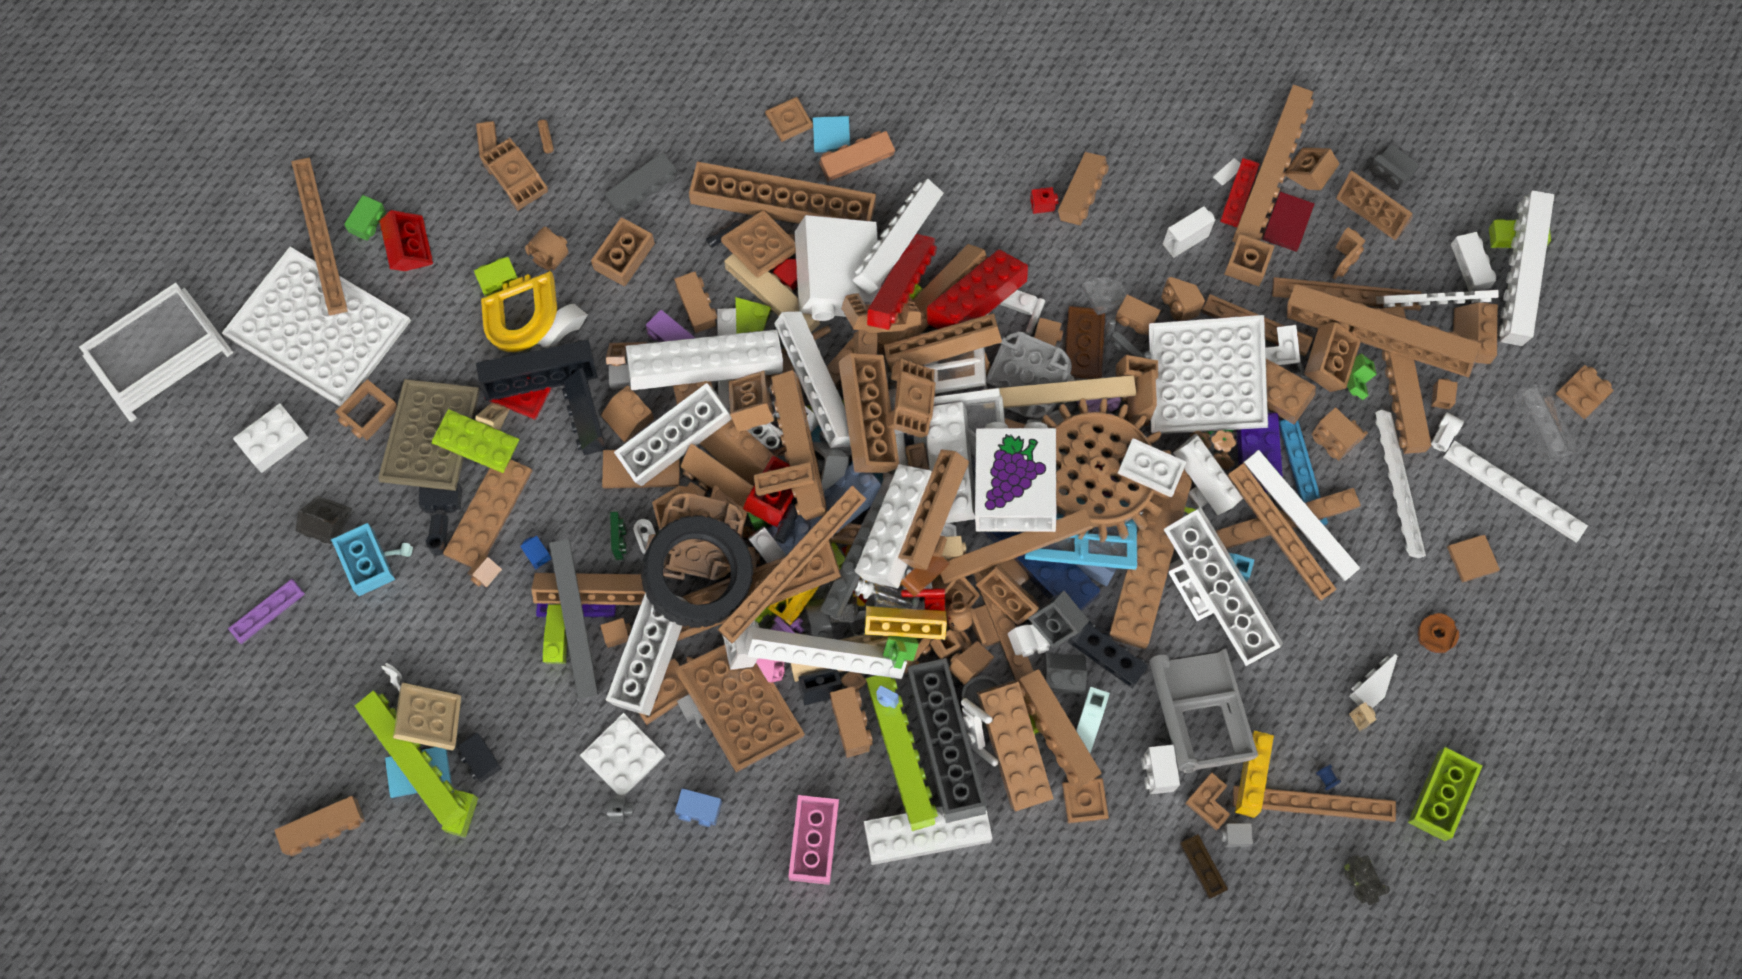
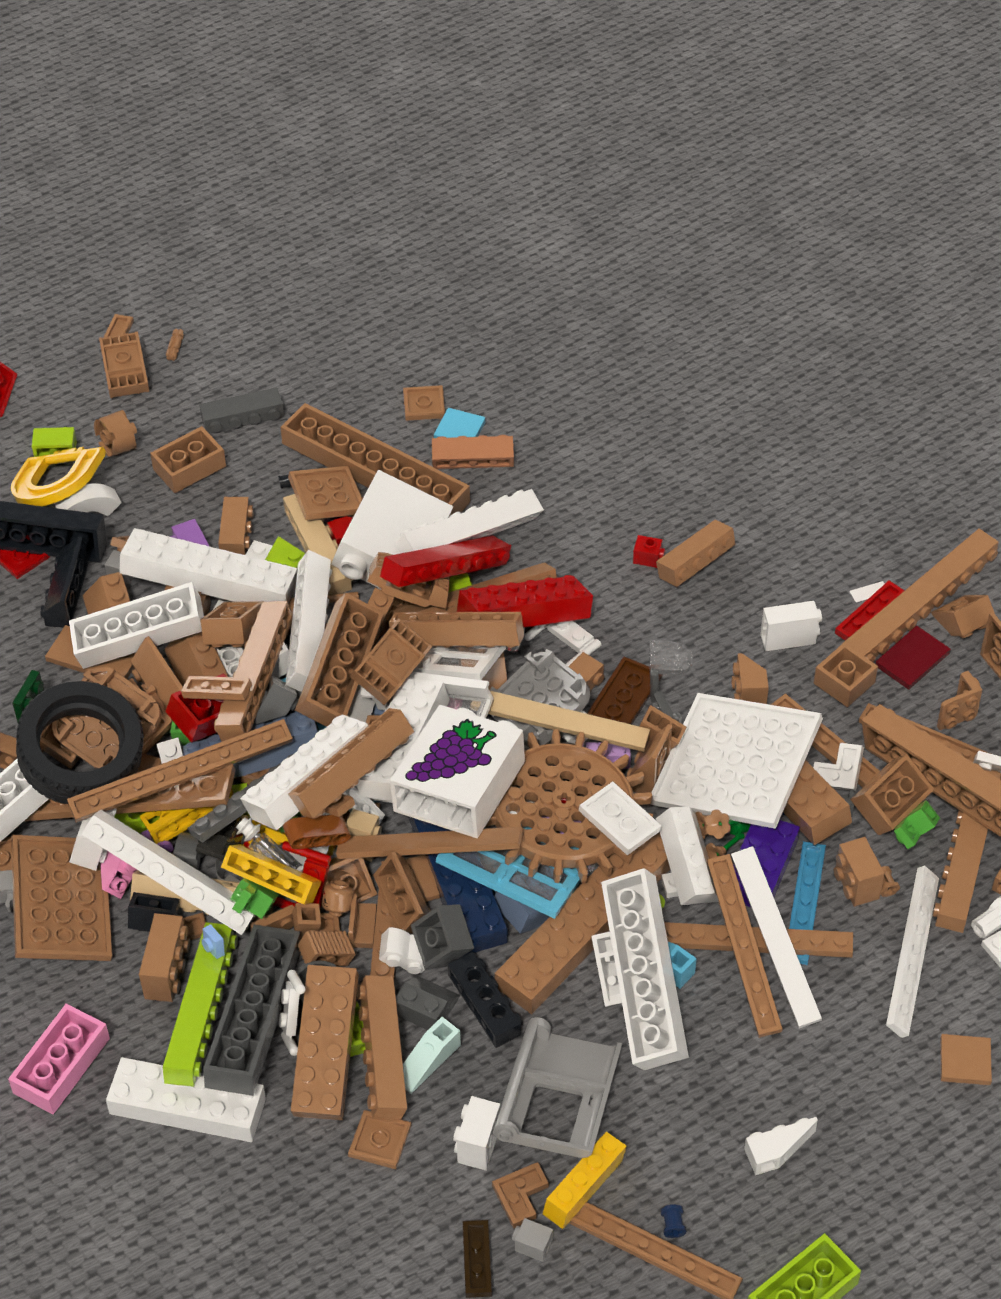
camera: 25 degrees right, 20 degrees down
(786, 524) = (199, 740): black pin -> none
(1137, 314) = (689, 682): medium nougat brick -> none
(1363, 716) = (744, 1167): tan plate -> none
(1448, 629) = (883, 1133): dark orange plate -> none

